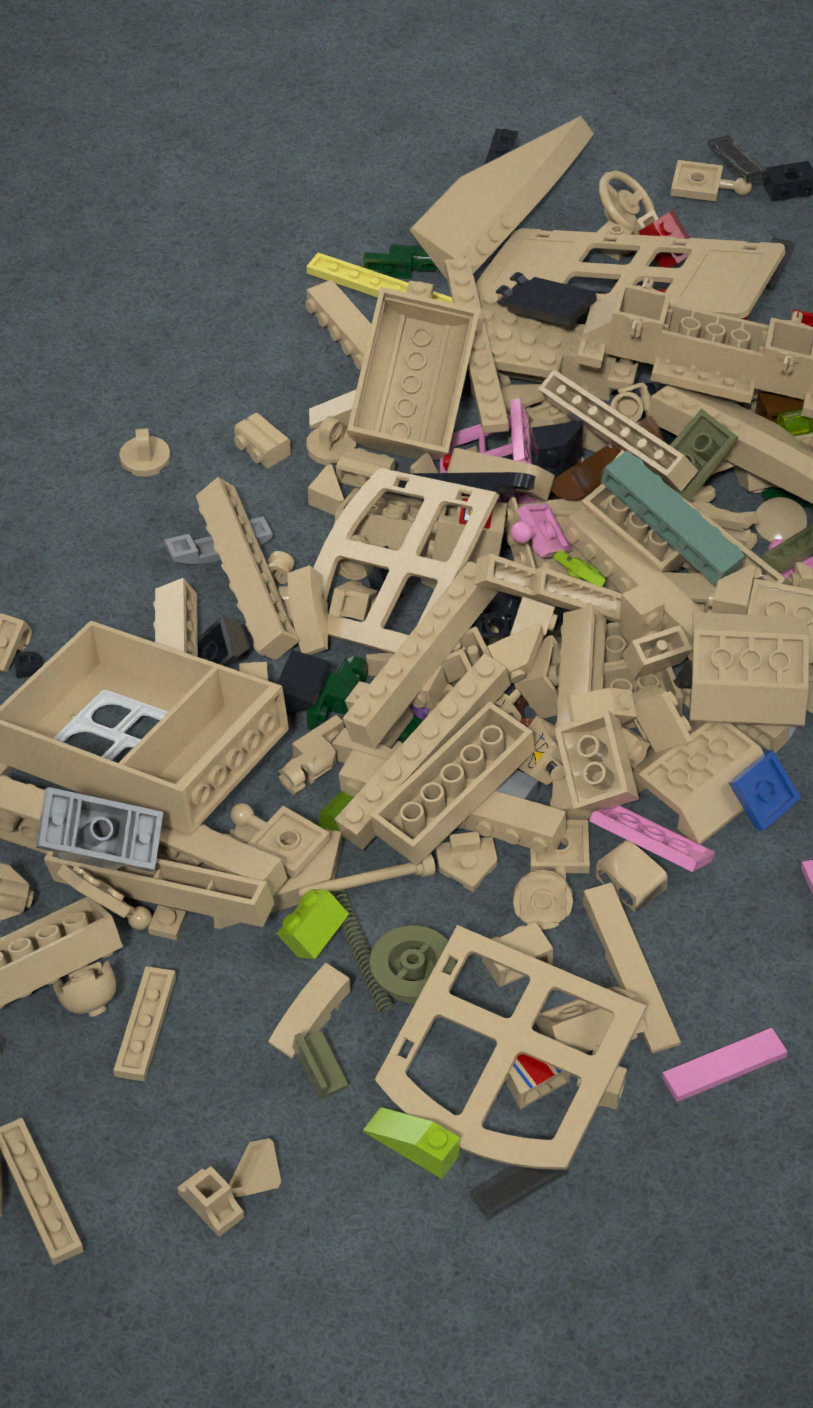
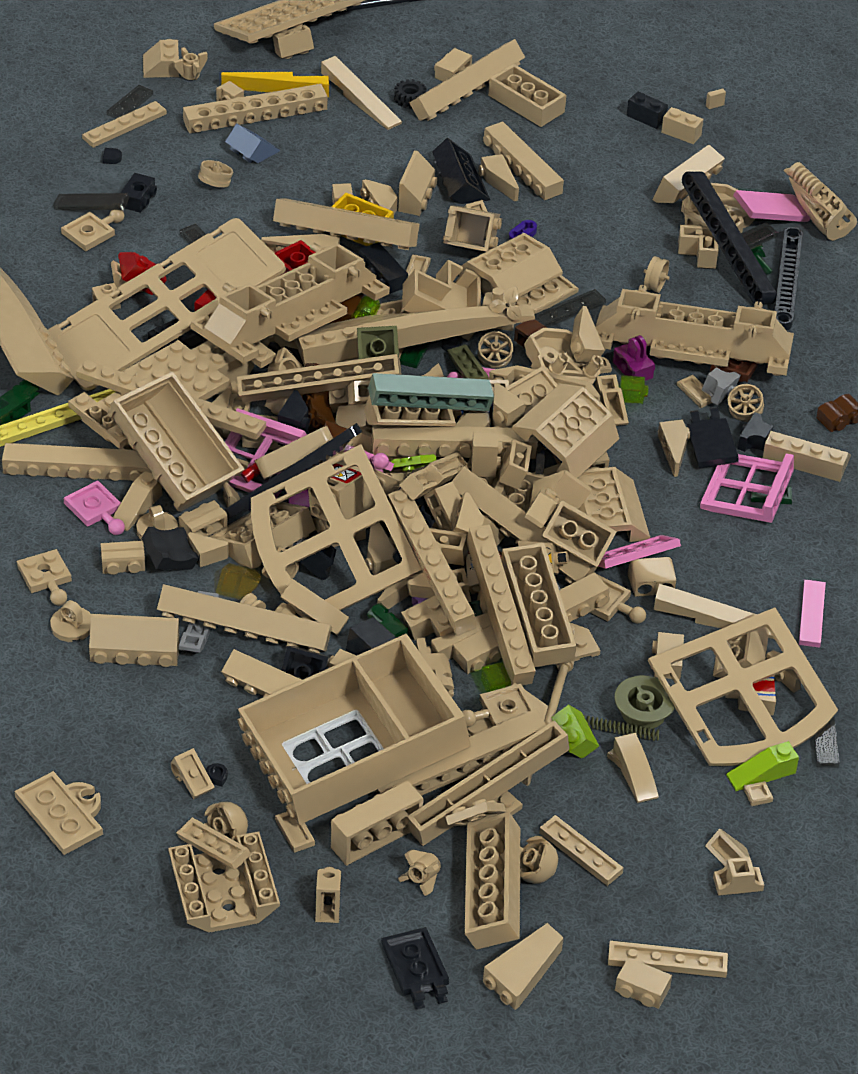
camera: 60 degrees left, 5 degrees down
(98, 831) = (453, 775): light grey brick -> none
(143, 504) = (134, 640): none -> tan slope
(202, 411) = (38, 580): none -> tan plate
(296, 463) = (169, 548): none -> black brick
(307, 537) = (237, 581): none -> clear yellow slope
(316, 384) = (95, 504): none -> bright pink plate
(319, 1064) = (679, 784): olive panel -> none
(352, 600) = (324, 582): tan brick -> none
(373, 1155) = (758, 793): none -> tan tile
(542, 899) = (641, 621): tan tile -> none
(546, 299) = (170, 345): black tile -> none
(623, 206) = (82, 273): tan piece -> none
(764, 790) = (641, 486): blue plate -> none
(780, 519) = (429, 358): tan dish -> none

